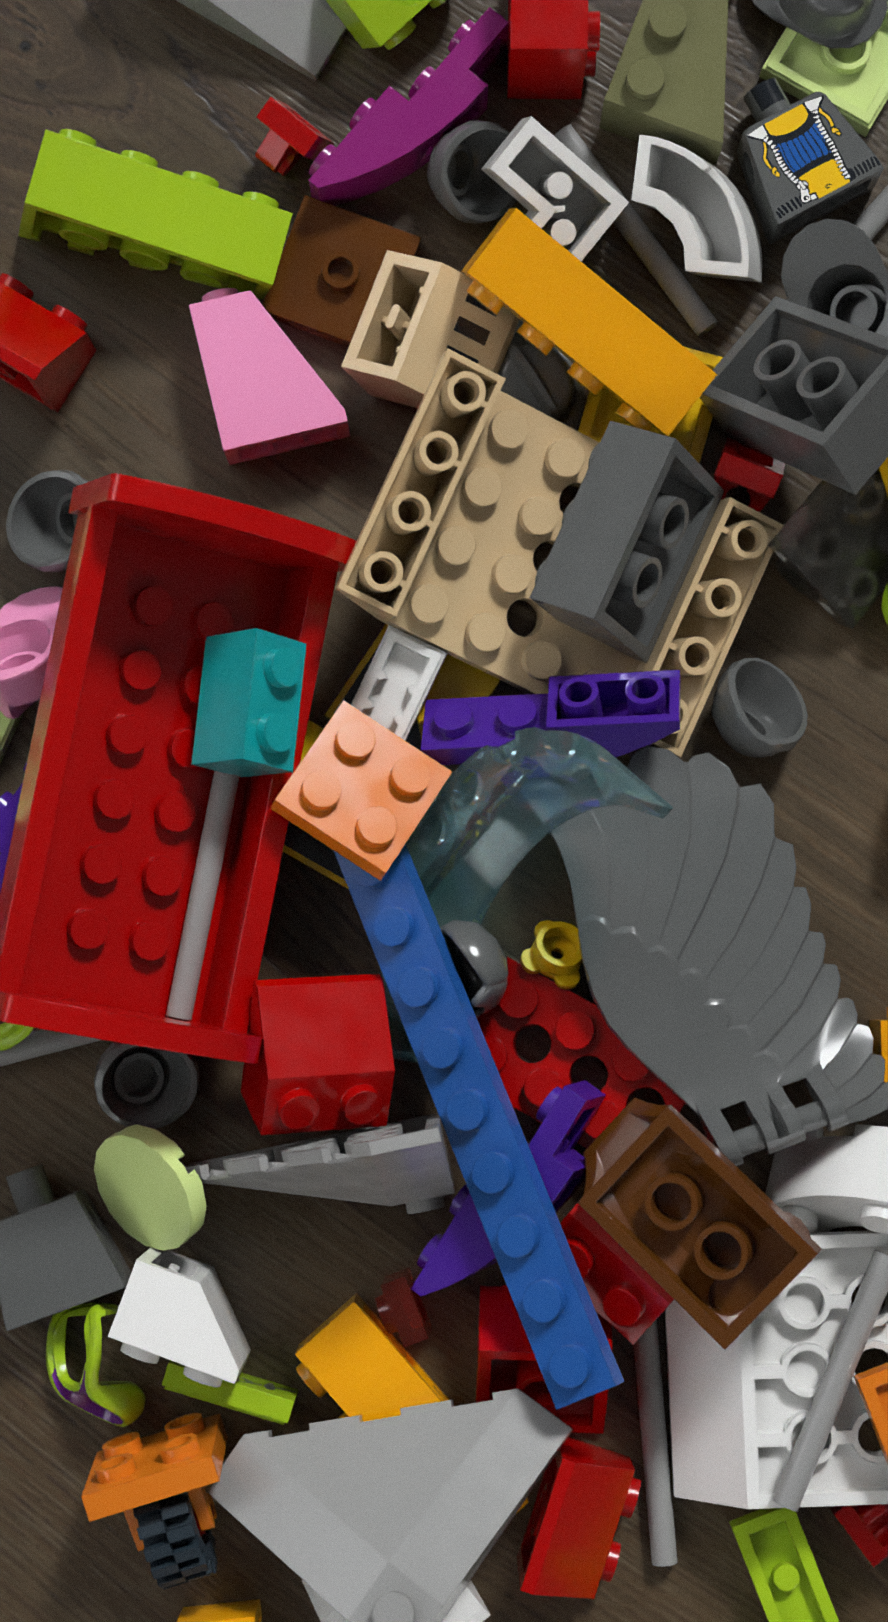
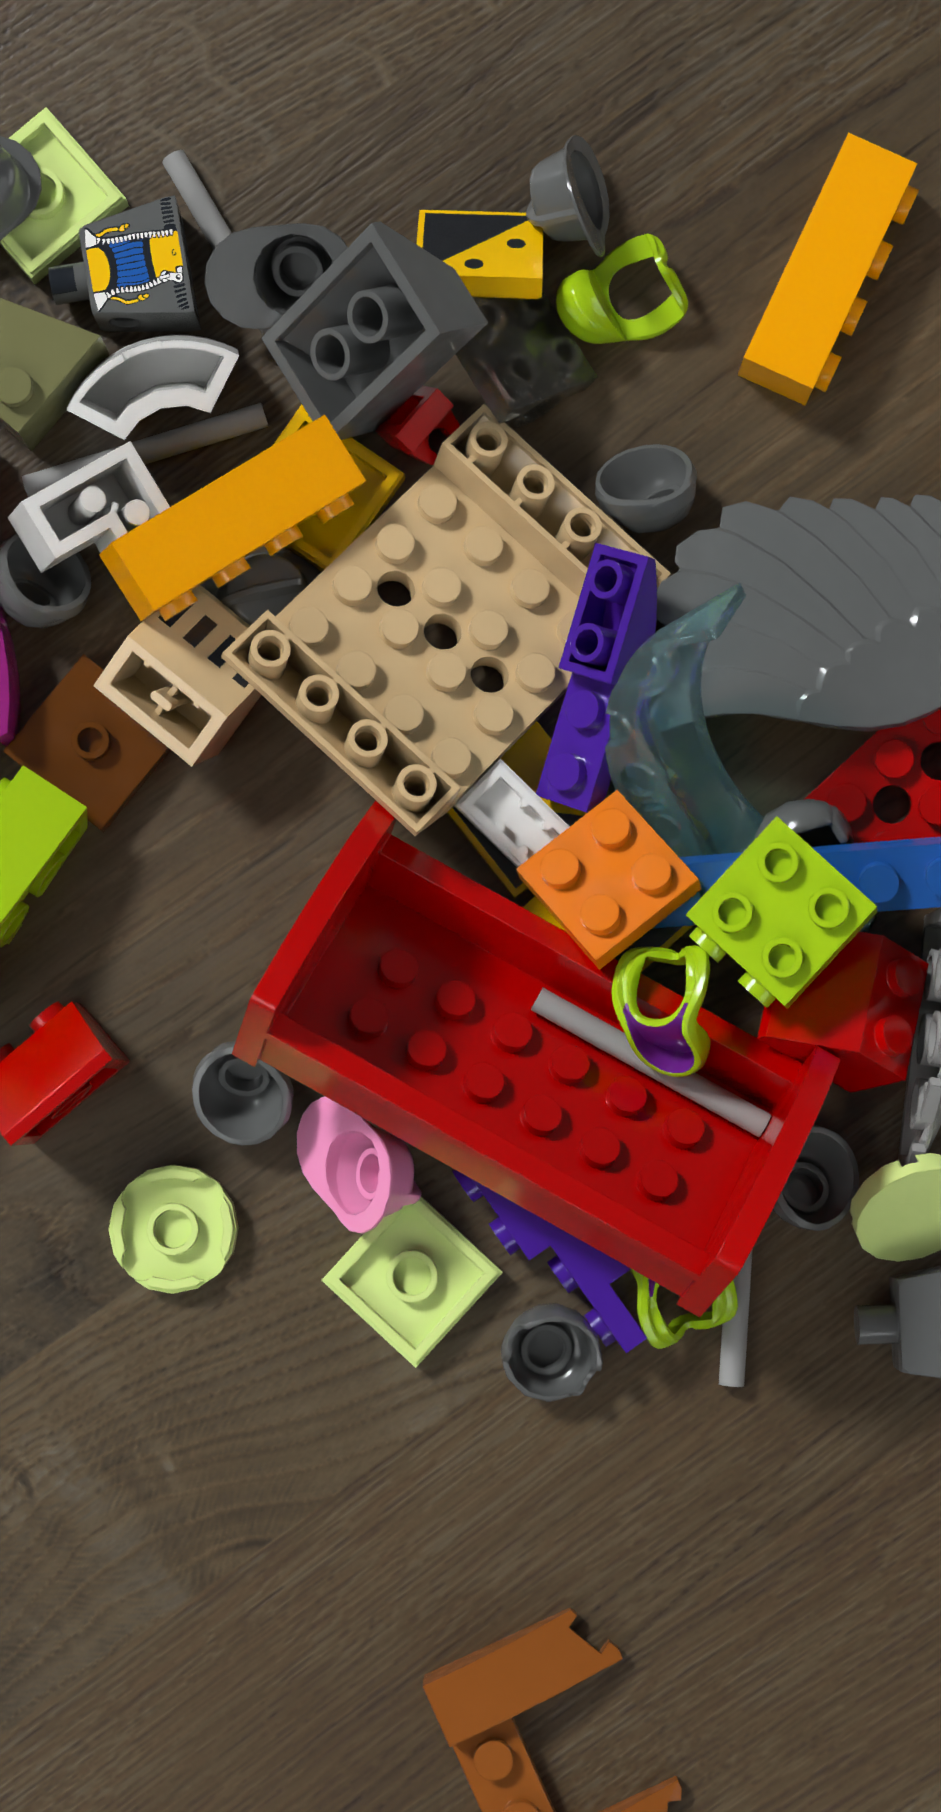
camera: 70 degrees left, 0 degrees up
(223, 900) = (674, 1043): none -> lime piece
(249, 703) = (492, 956): teal brick -> none
(259, 381) = (170, 853): bright pink slope -> none
(374, 959) = (779, 915): none -> lime brick
(556, 937) = (804, 741): yellow plate -> none
(628, 539) = (451, 552): dark grey slope -> none

